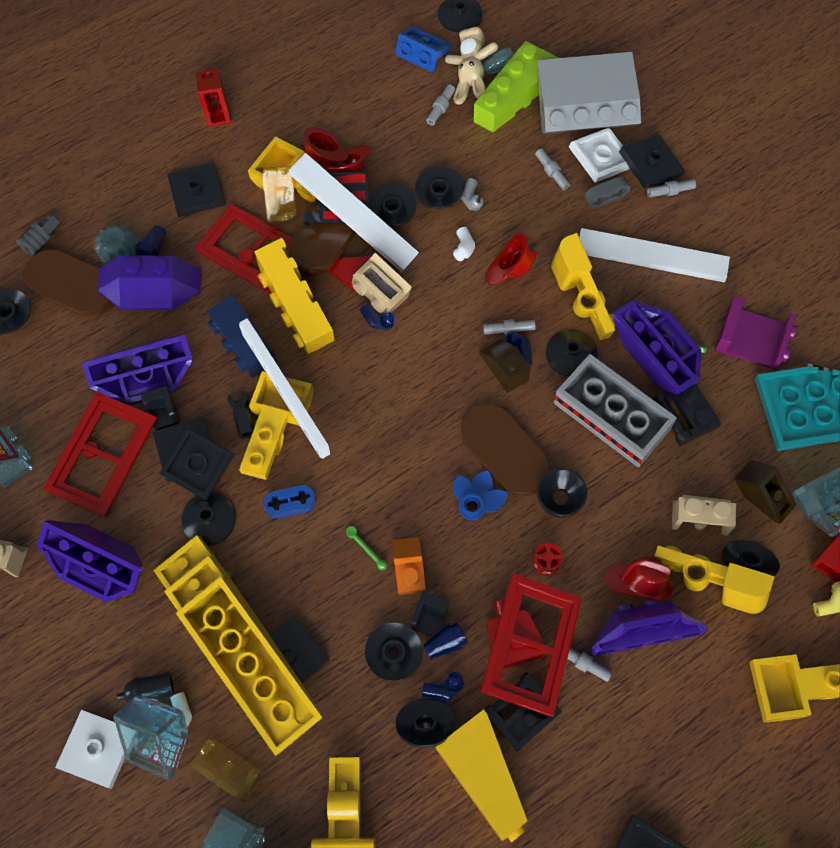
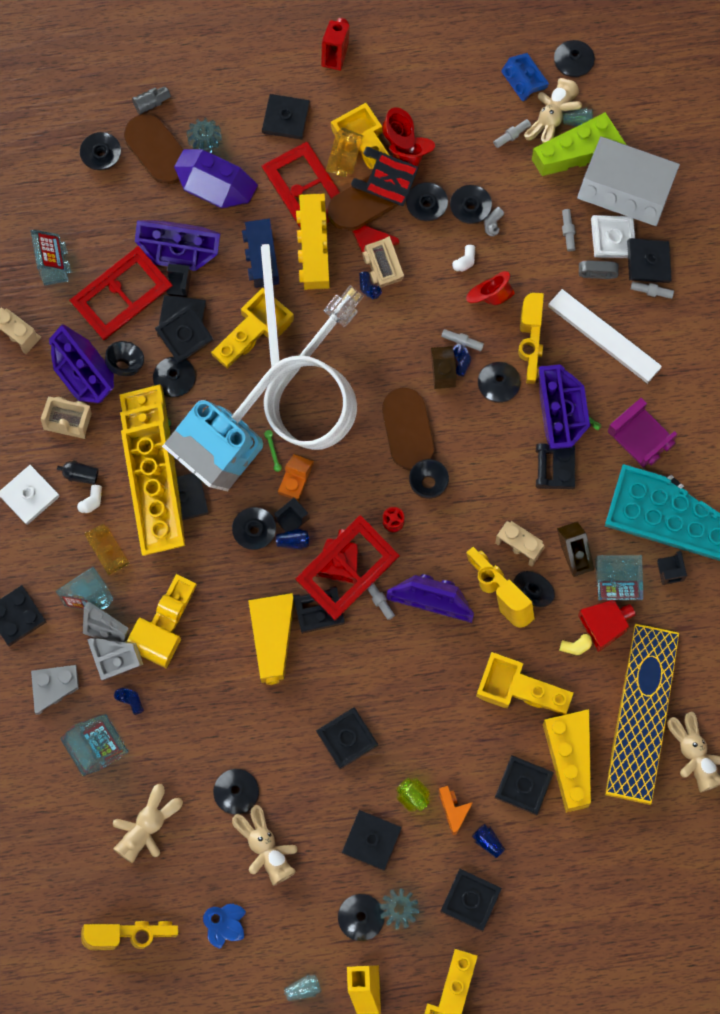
camera: 25 degrees right, 5 degrees up
(100, 628) = (66, 417): none -> tan window
(139, 517) = (124, 352): none -> black piece
(151, 243) = (229, 148): clear blue cone -> none
(152, 735) = (68, 502): clear light blue slope -> none
(242, 416) = (233, 313): black bar -> none
(289, 495) = (236, 387): blue beam -> none
(303, 571) = (218, 443): none -> piece
(353, 212) = (391, 195): white tile -> none
(425, 723) = (250, 583): black dish -> none
(446, 690) = (277, 571): clear blue arm -> none
(478, 492) = (372, 450): blue plate -> none
(614, 410) = (500, 438): light grey brick -> none
(641, 578) = (449, 563): red piece -> none

